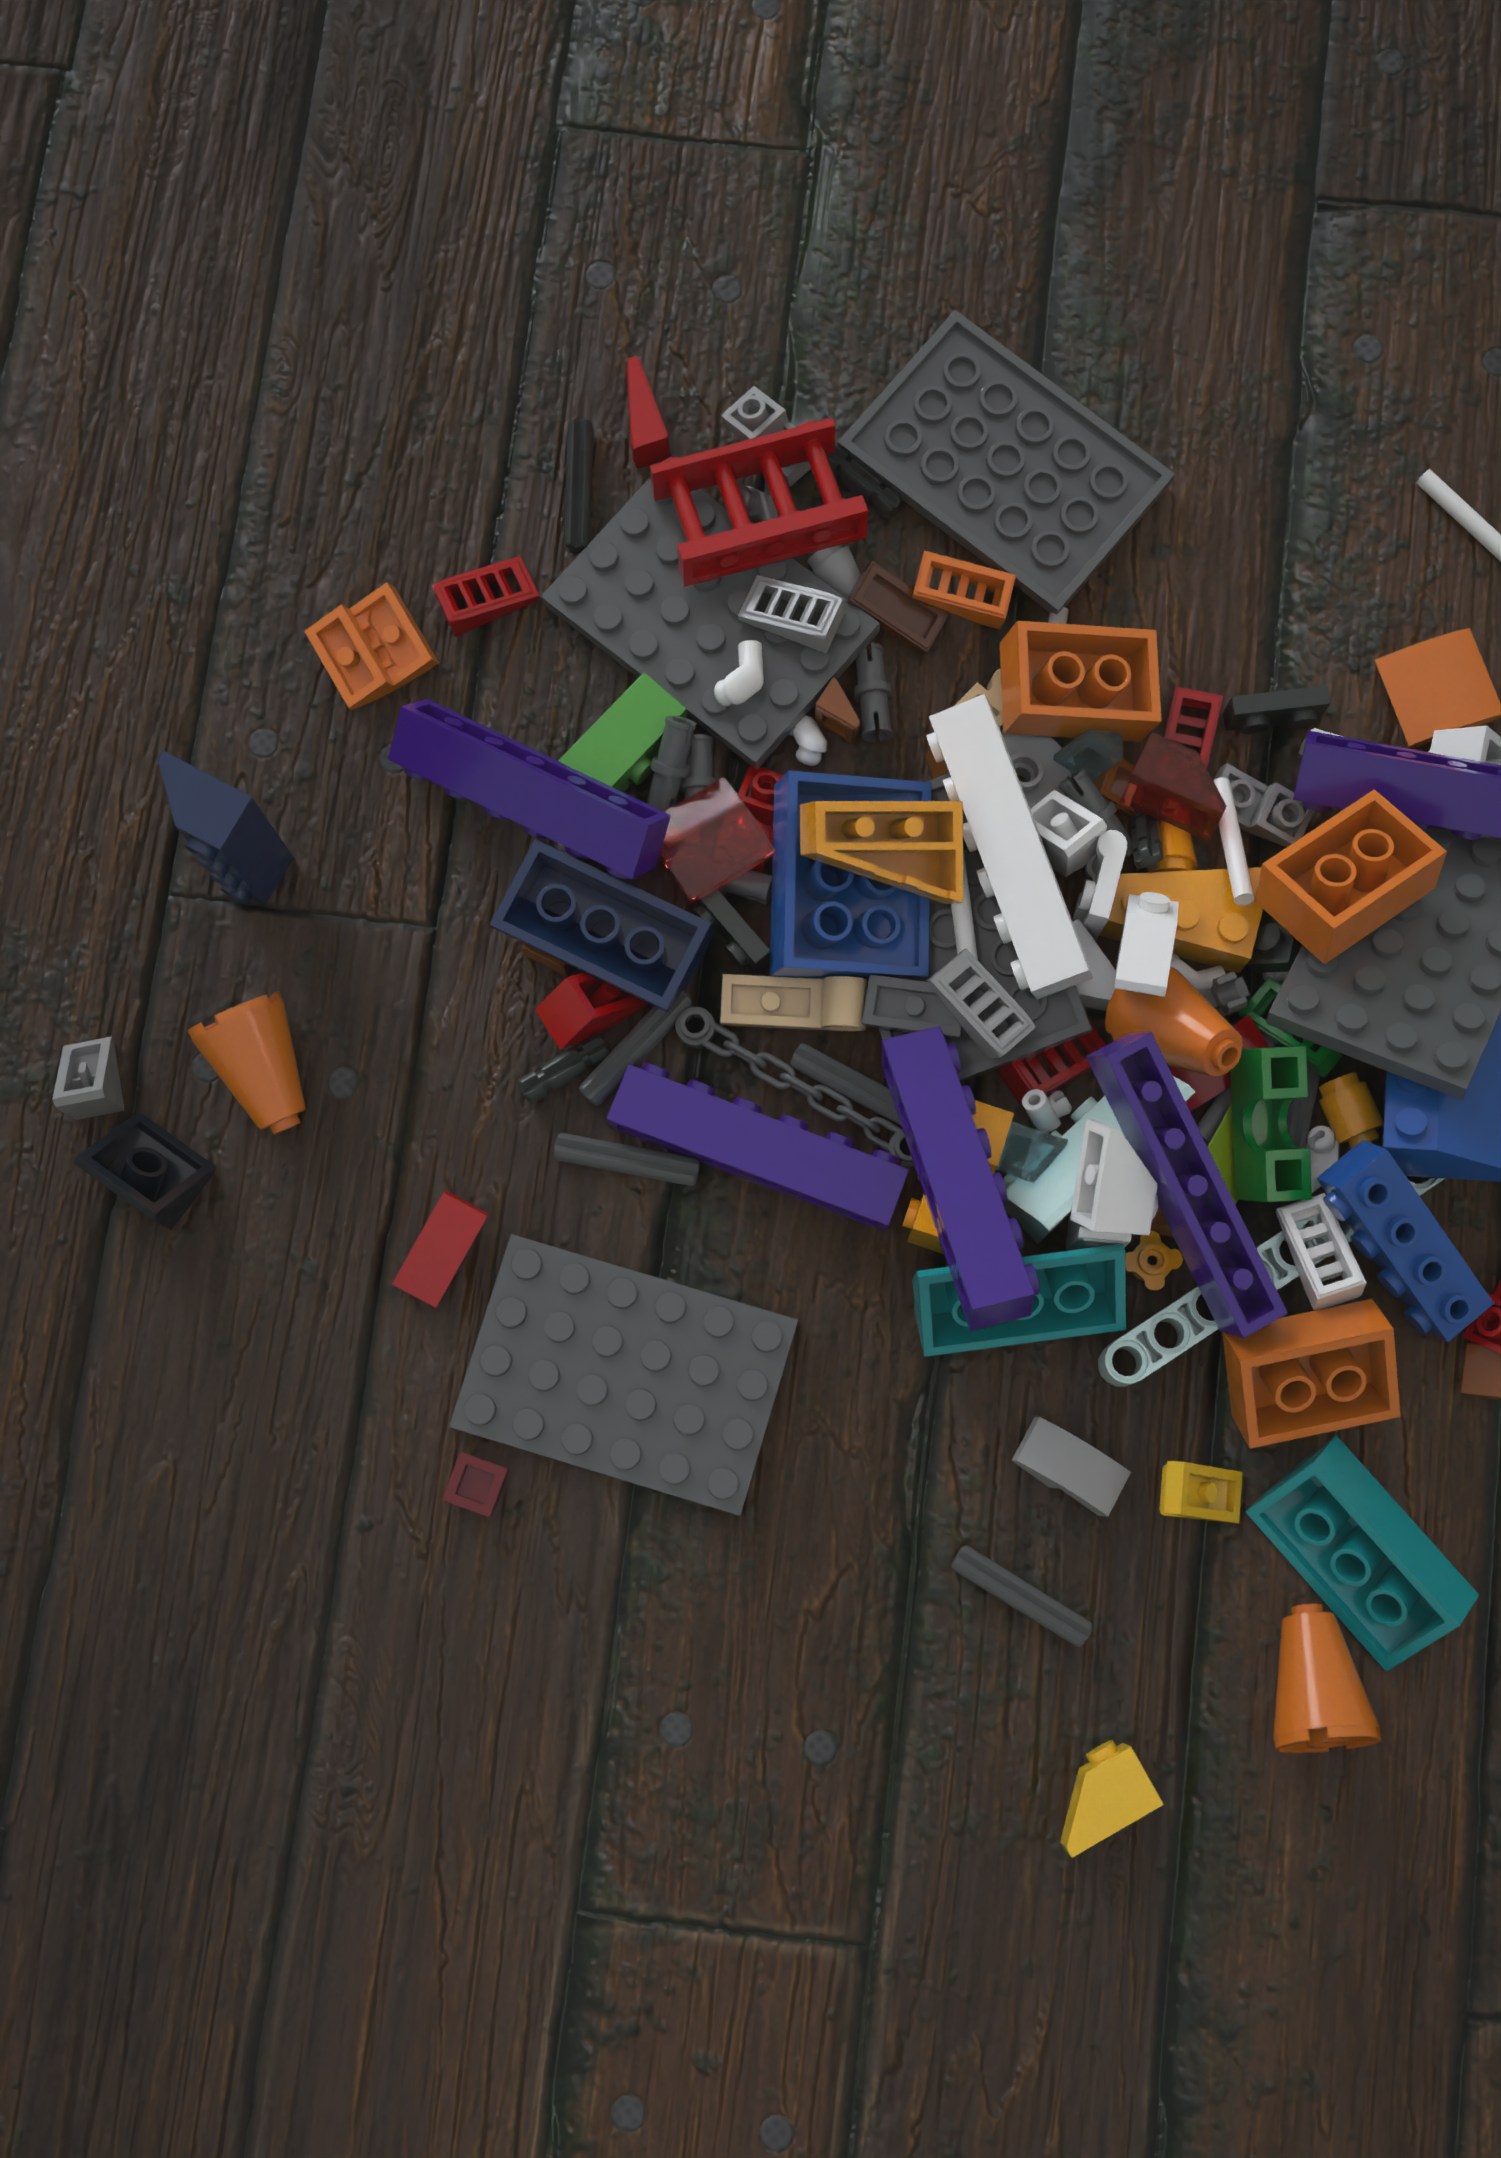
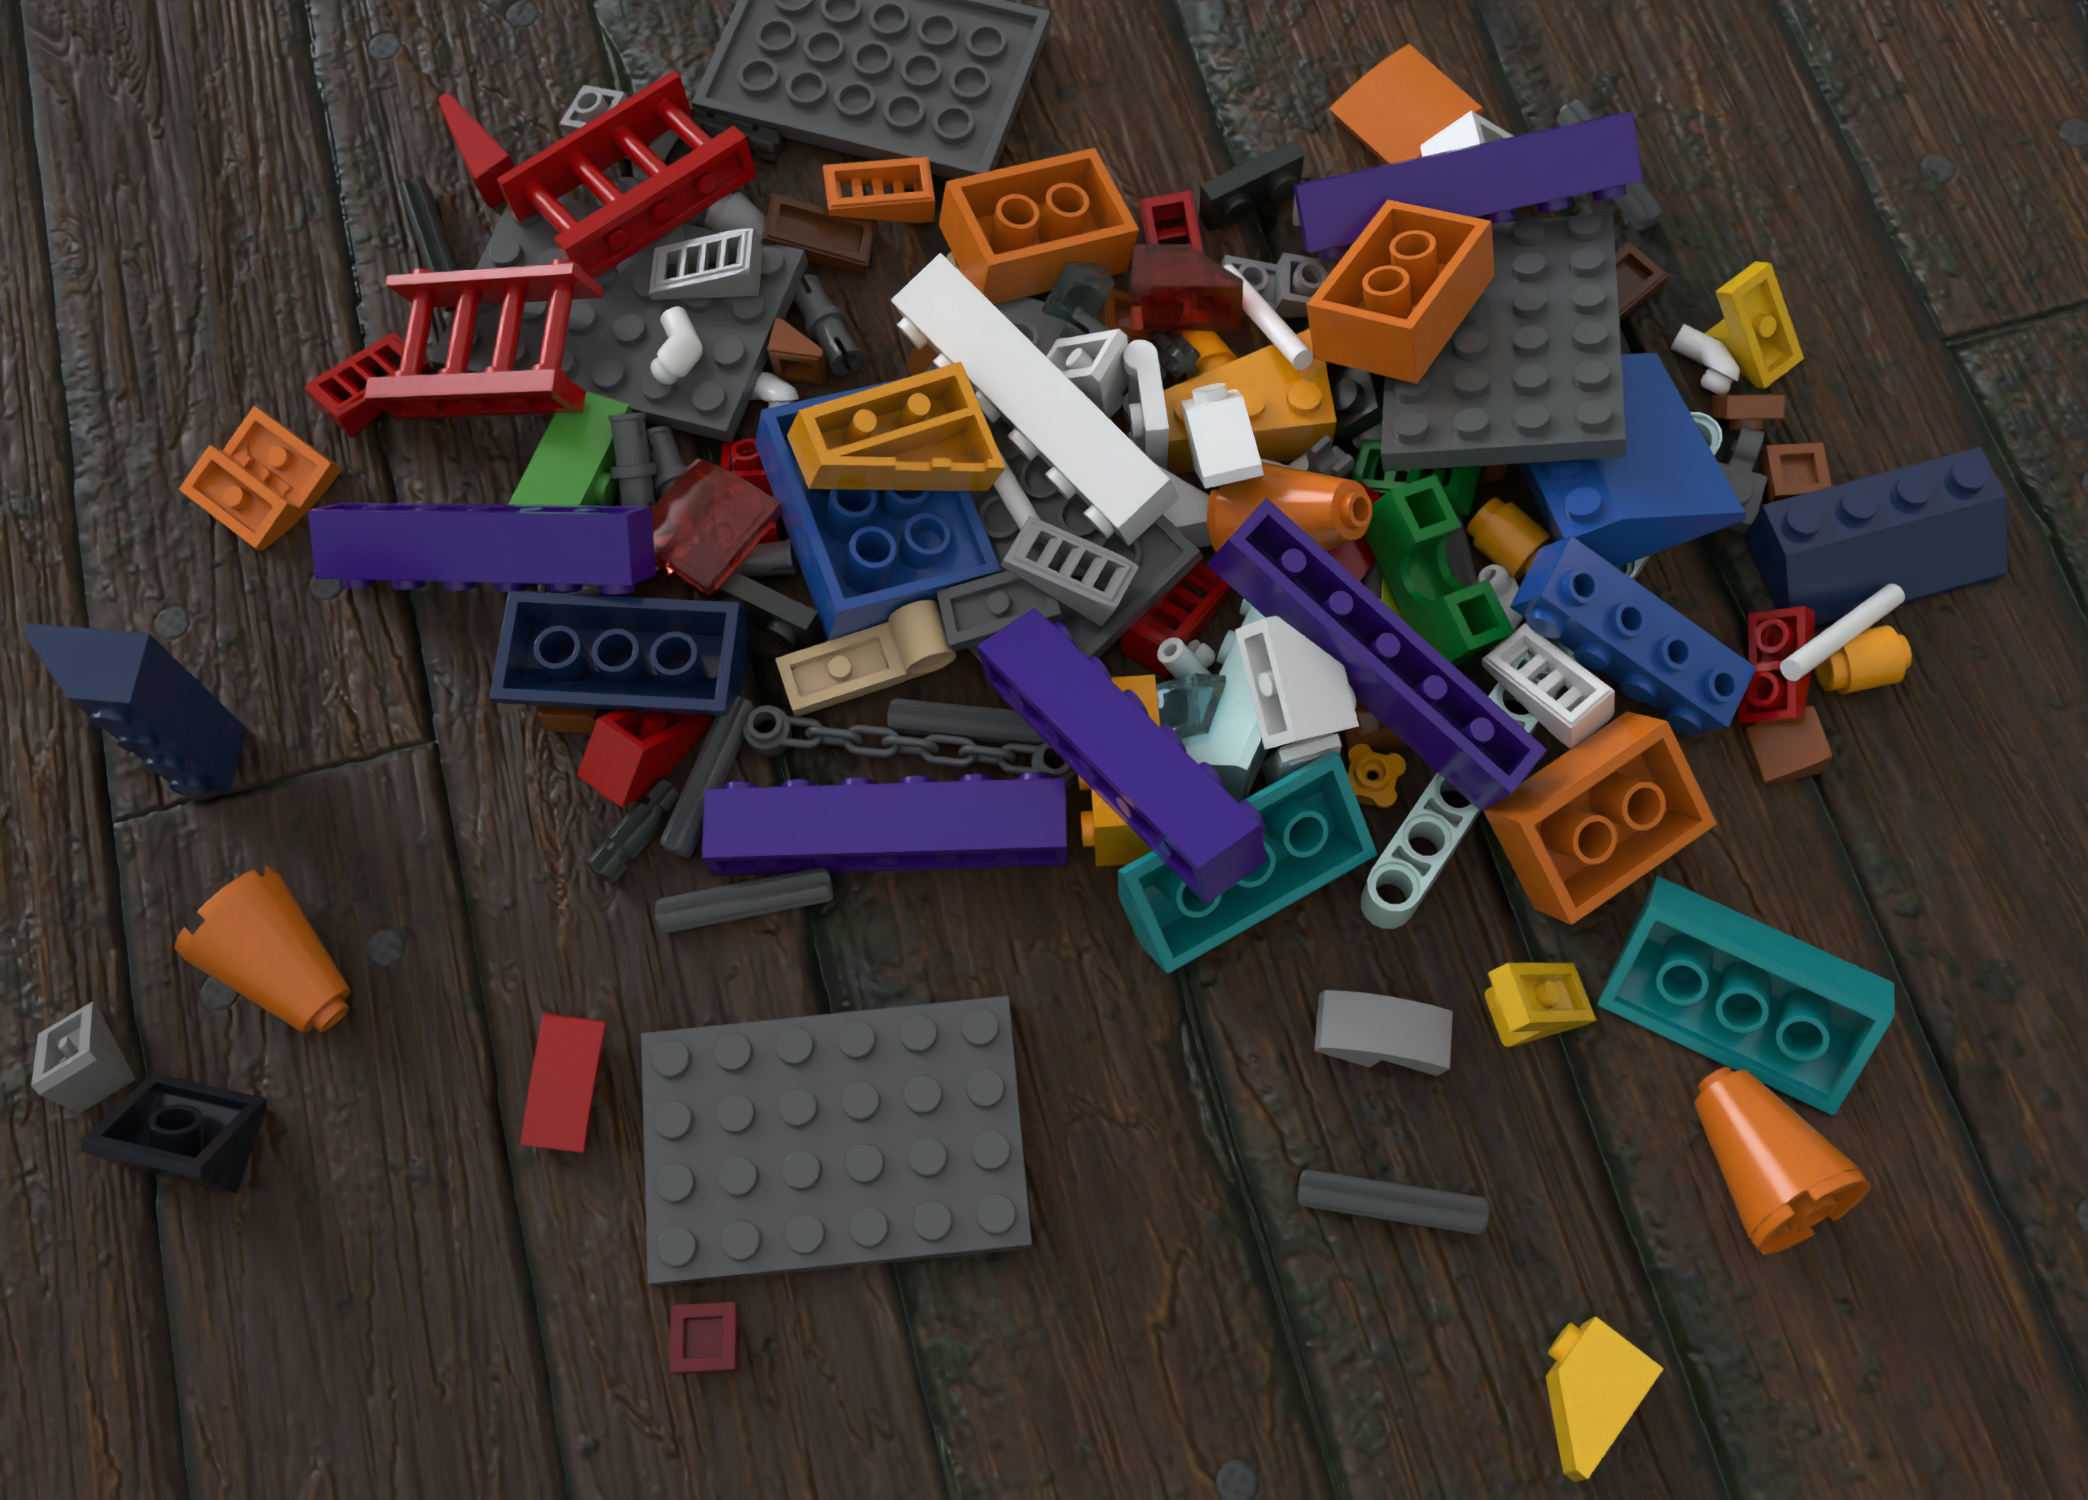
camera: 20 degrees left, 10 degrees down
(588, 652) = (499, 387): none -> red fence

